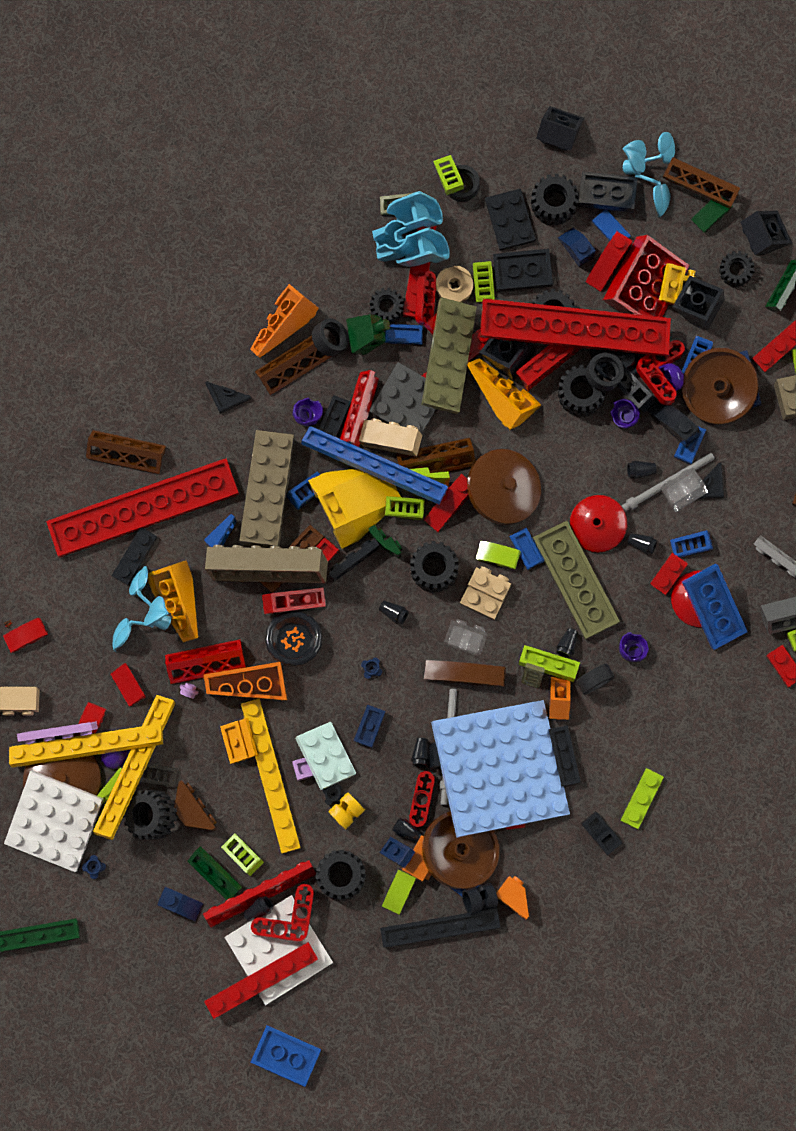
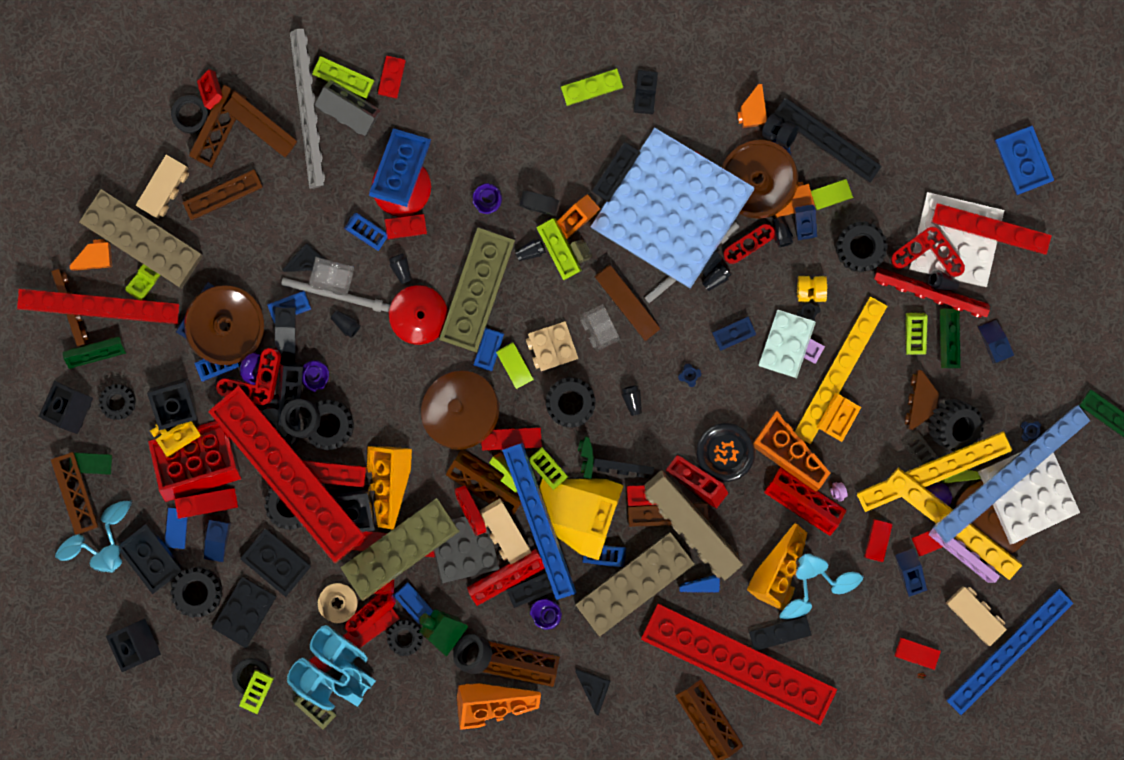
camera: 145 degrees left, 10 degrees up
(77, 819) = (1011, 474): none -> medium blue plate
(83, 685) = (911, 572): none -> dark blue slope
(428, 427) = (470, 510): none -> red beam
(483, 266) = (302, 595): lime slope -> none

